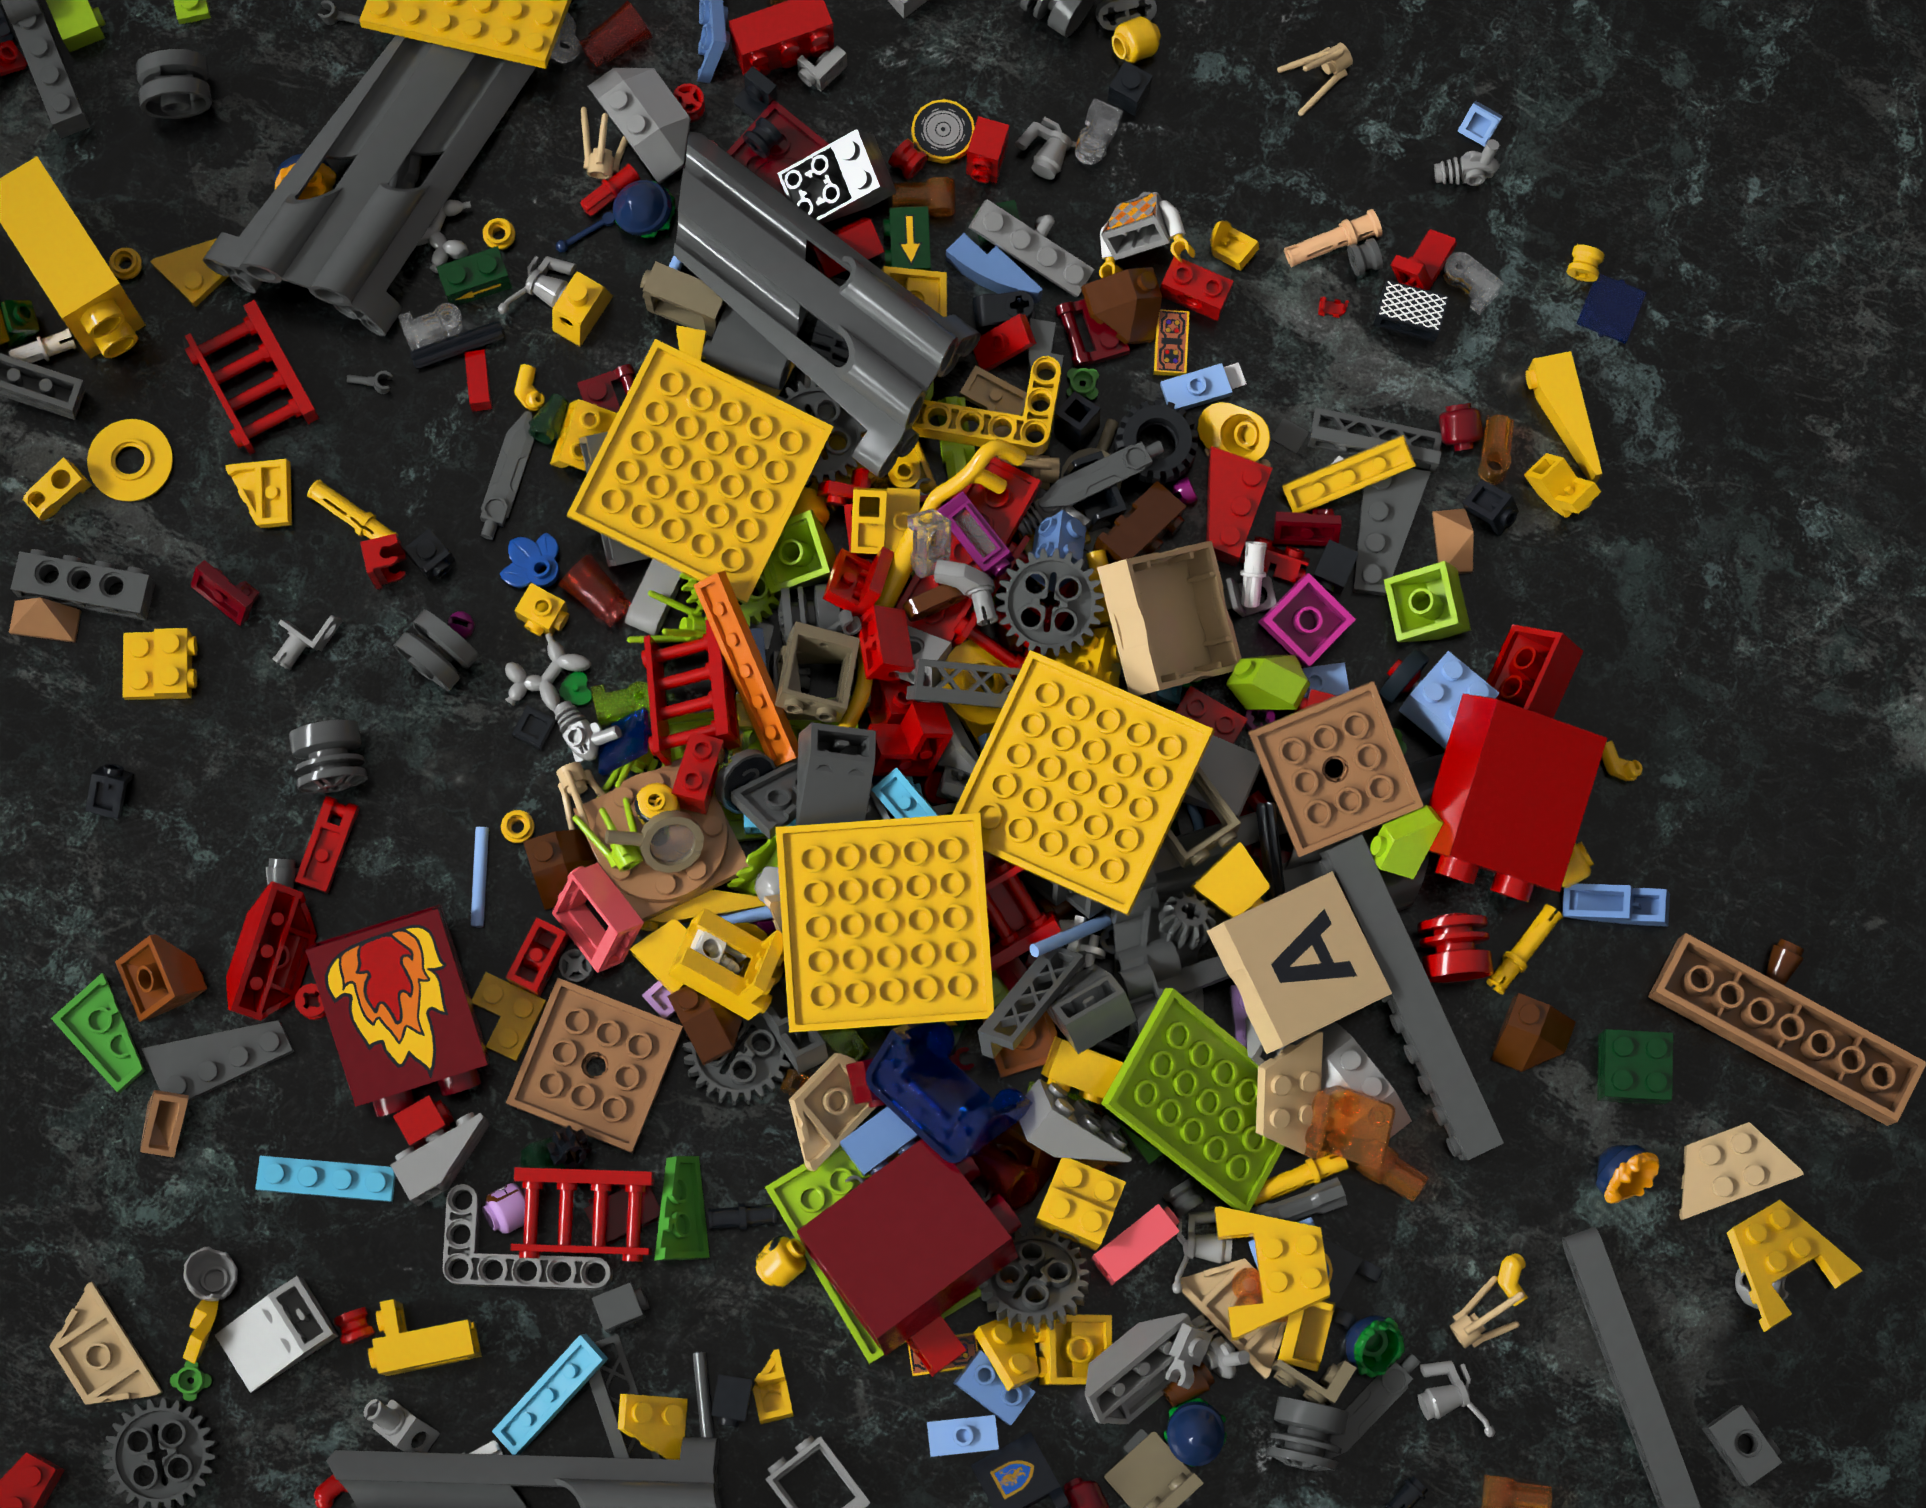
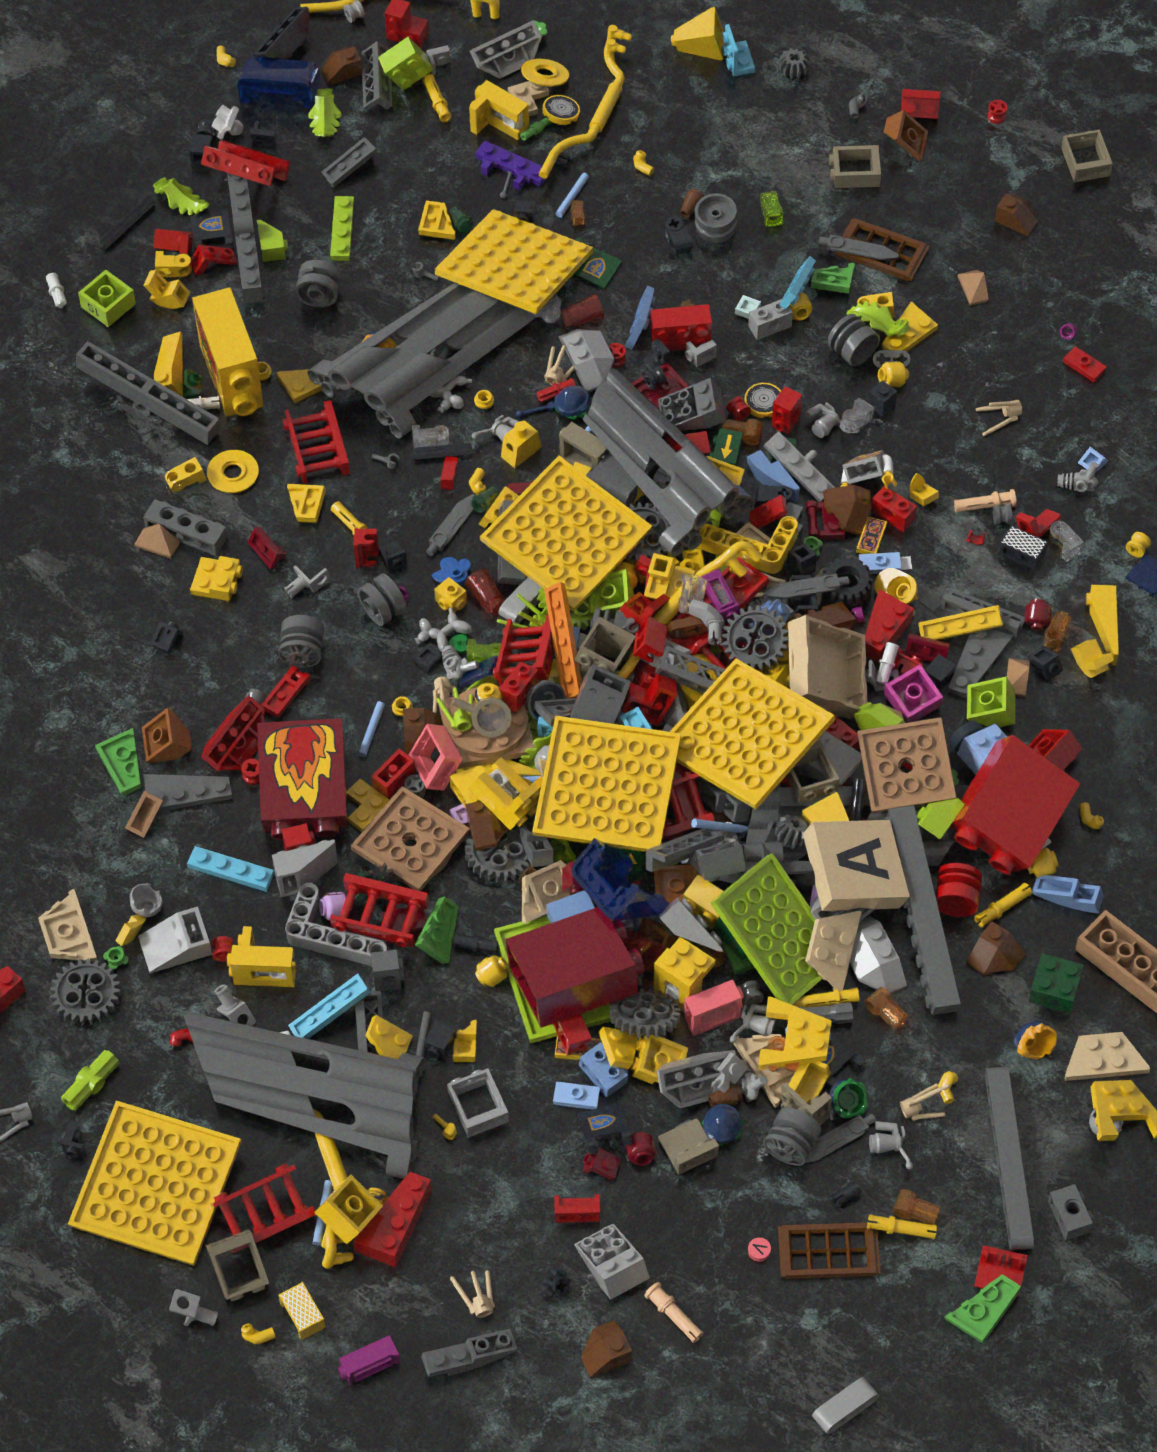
camera: 20 degrees right, 20 degrees down
(474, 276) = (463, 416): dark green brick -> none
(1349, 1127) = (863, 968): clear orange bracket -> none

